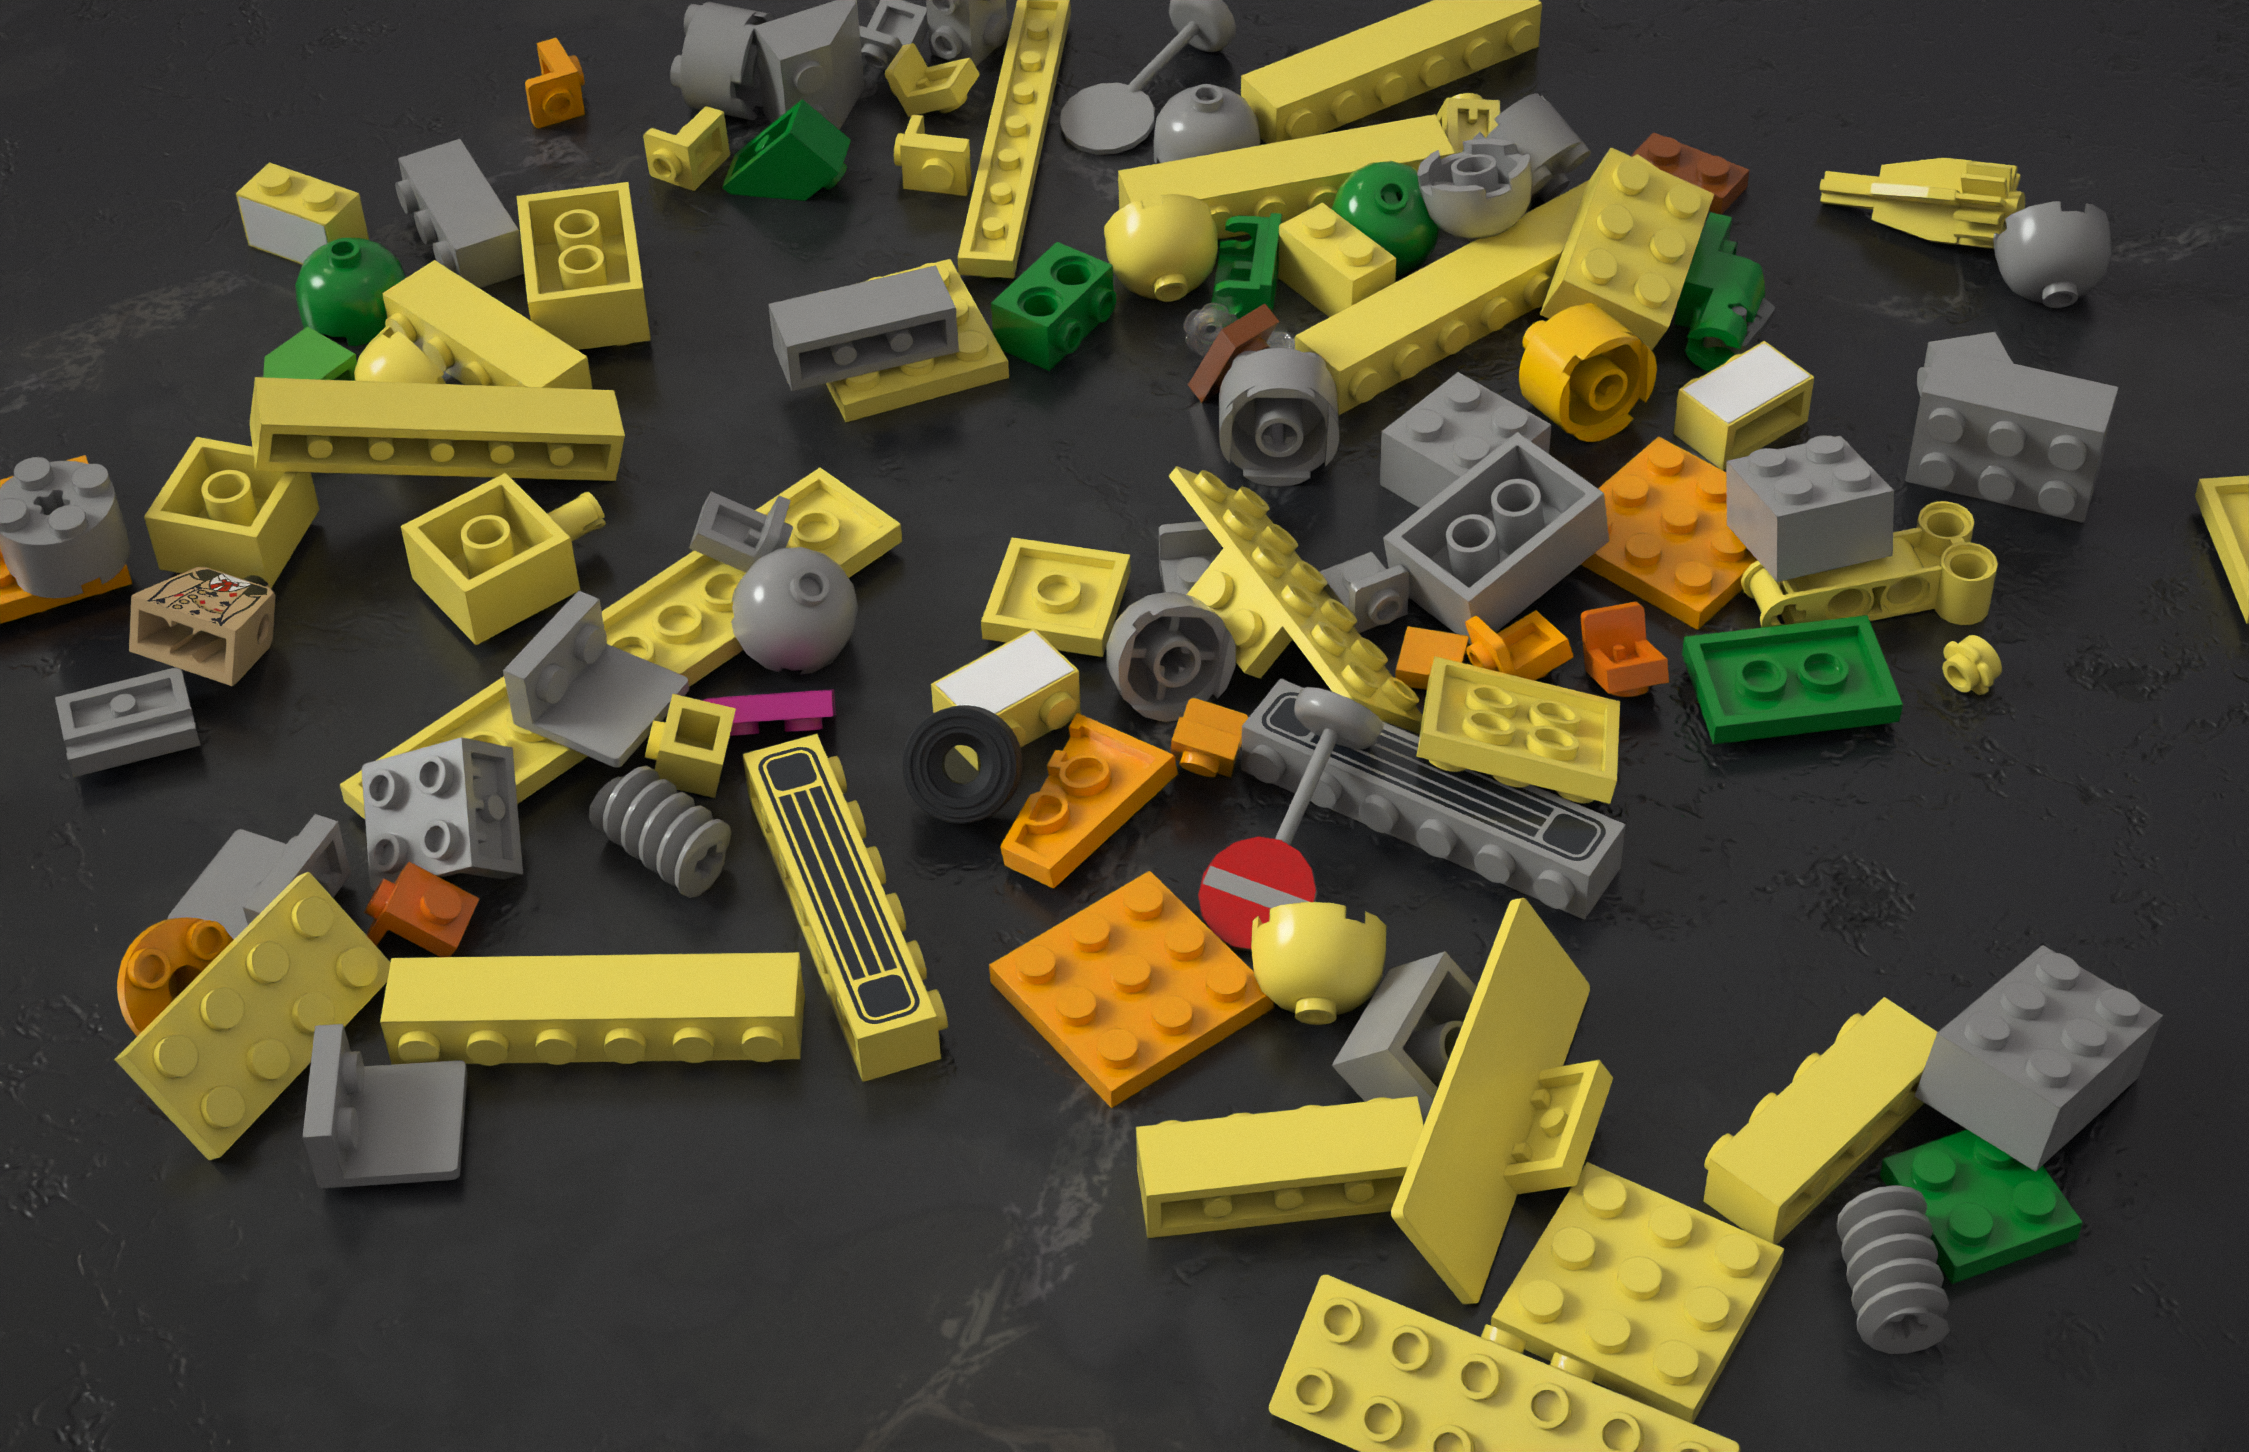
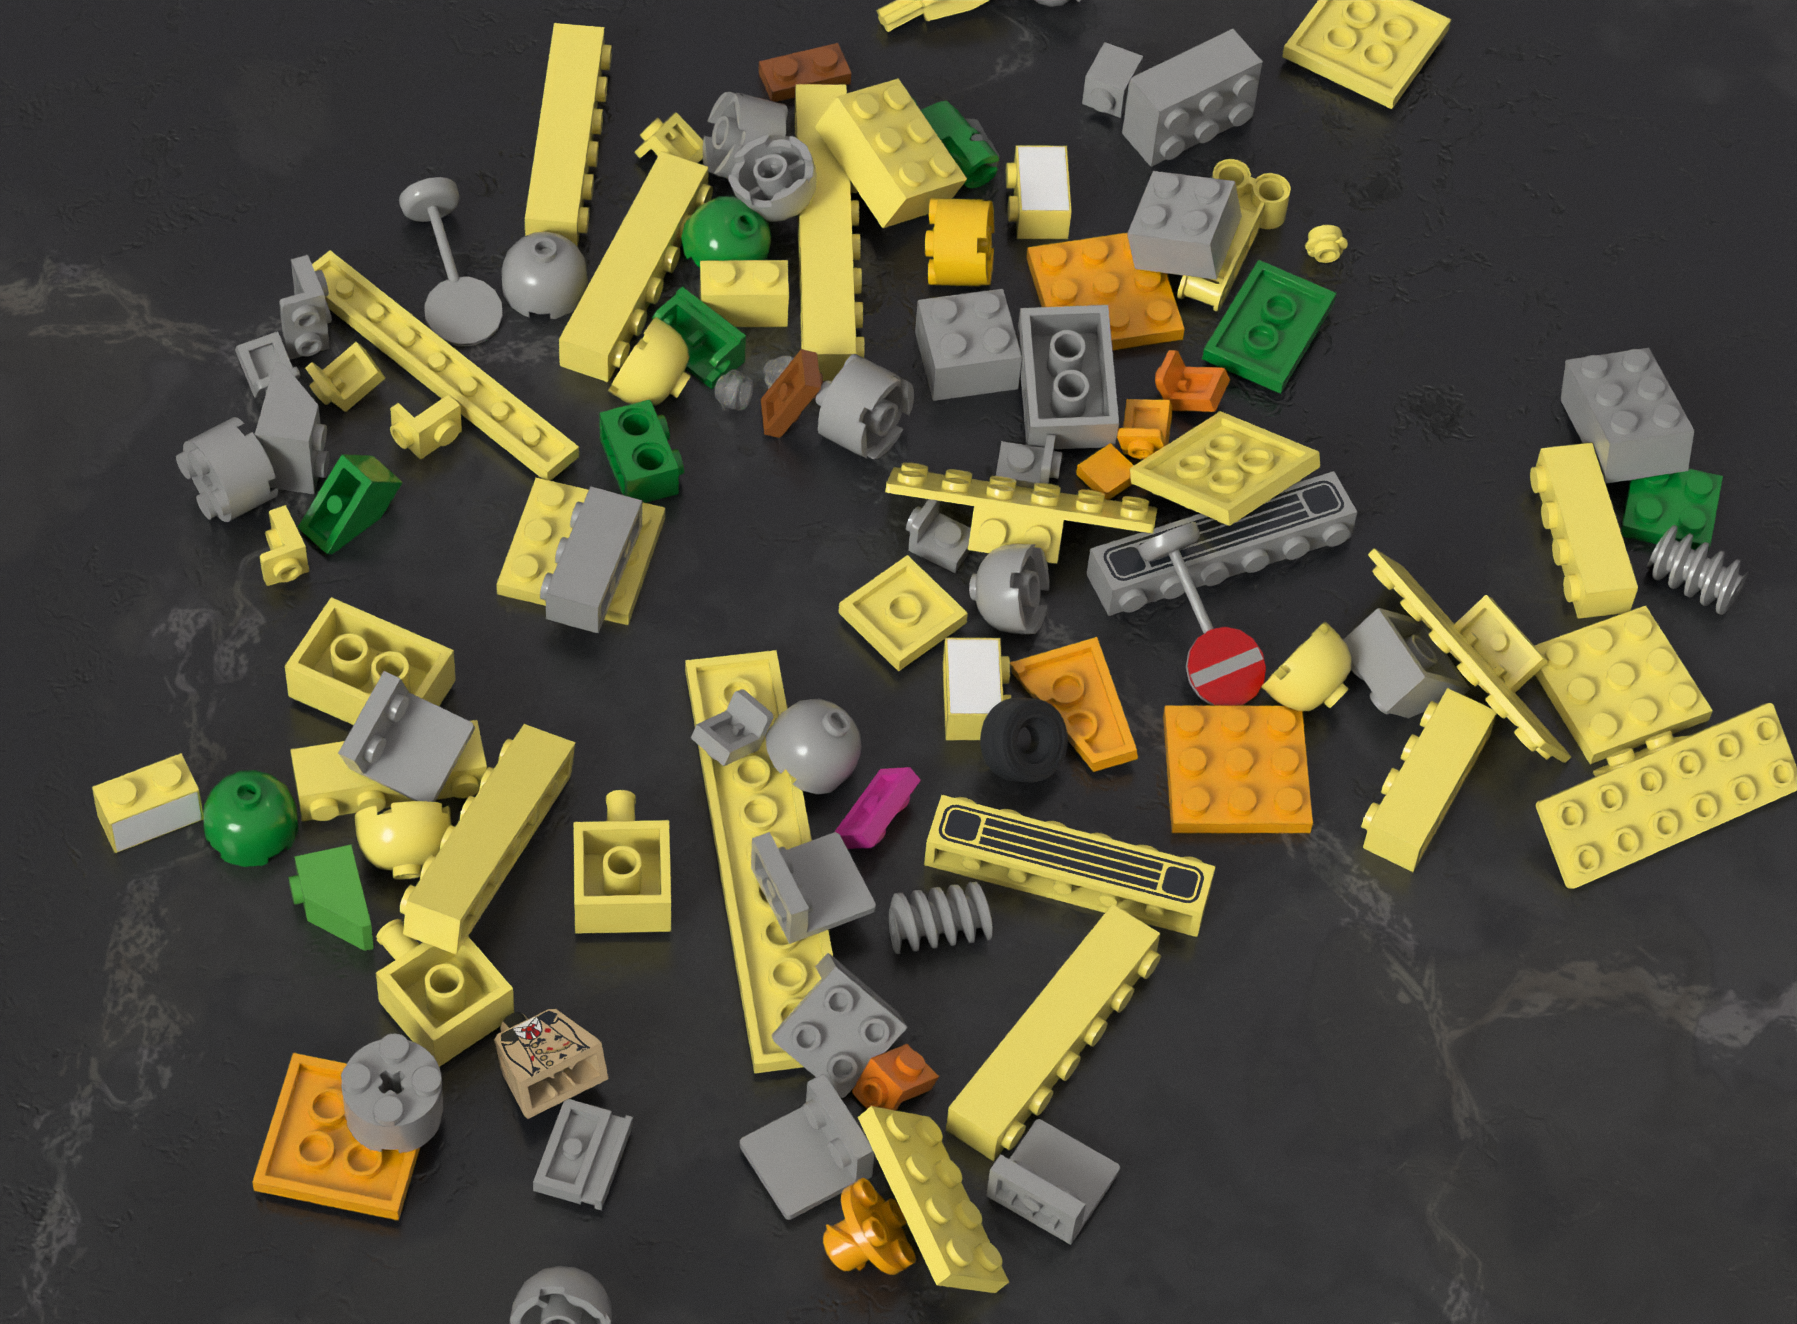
camera: 60 degrees left, 10 degrees up
(460, 214) = (229, 711): light grey brick -> none
(485, 295) = (405, 741): none -> light grey bracket
(557, 92) = (131, 576): light orange bracket -> none
(691, 744) = (892, 862): light yellow brick -> none
(1208, 738) = (1089, 615): light orange bracket -> none

